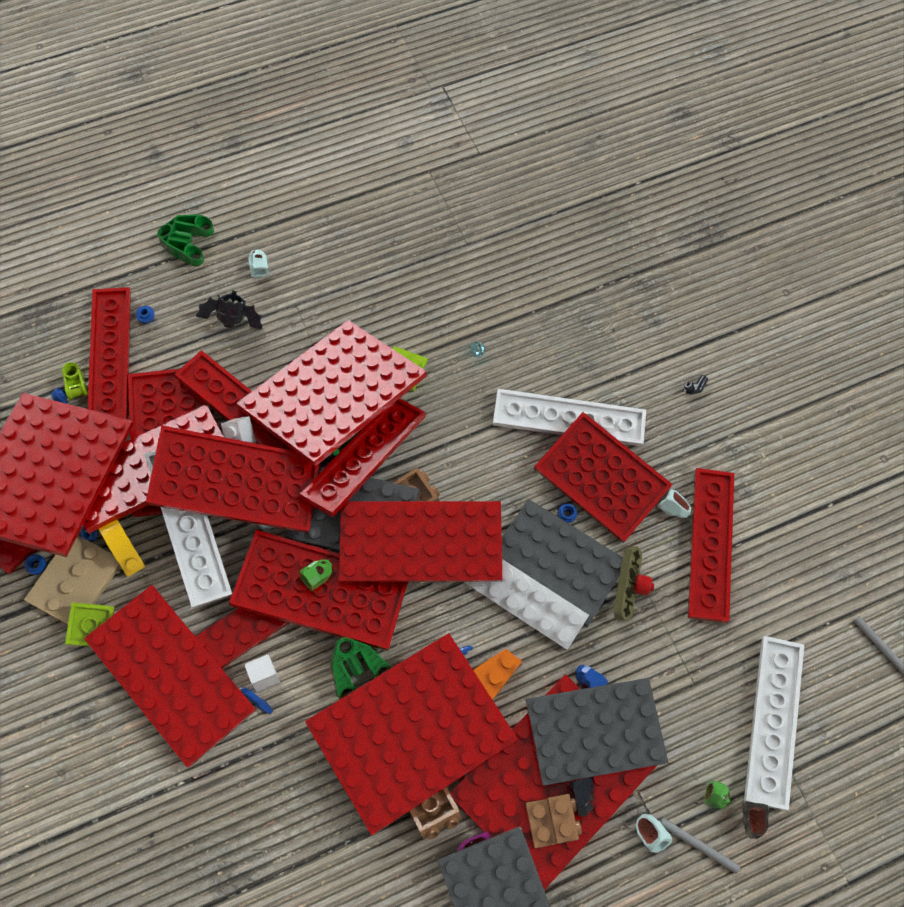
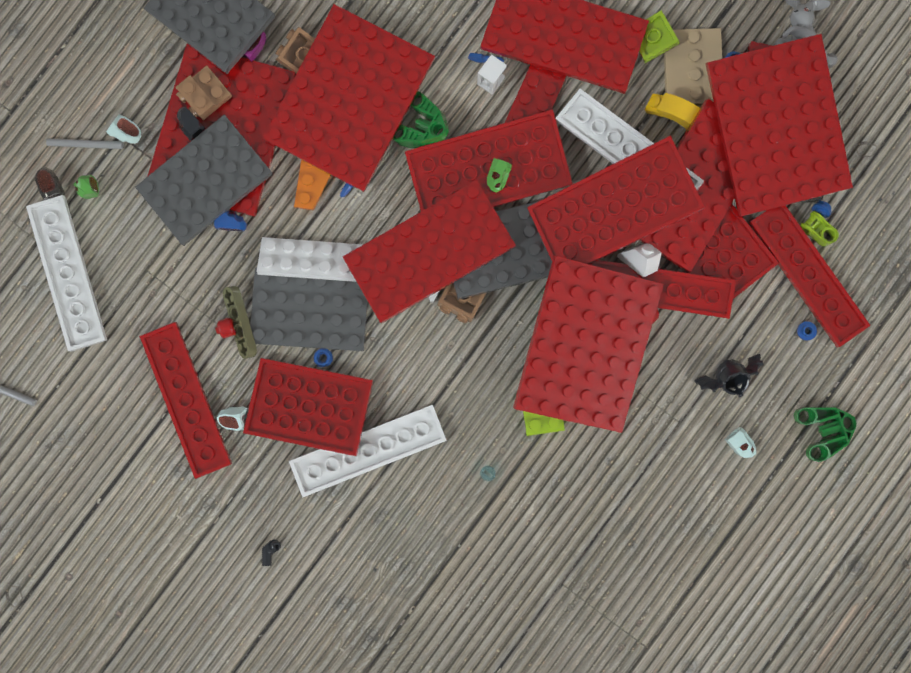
camera: 160 degrees right, 20 degrees up
(362, 457) = (522, 296): red plate -> none

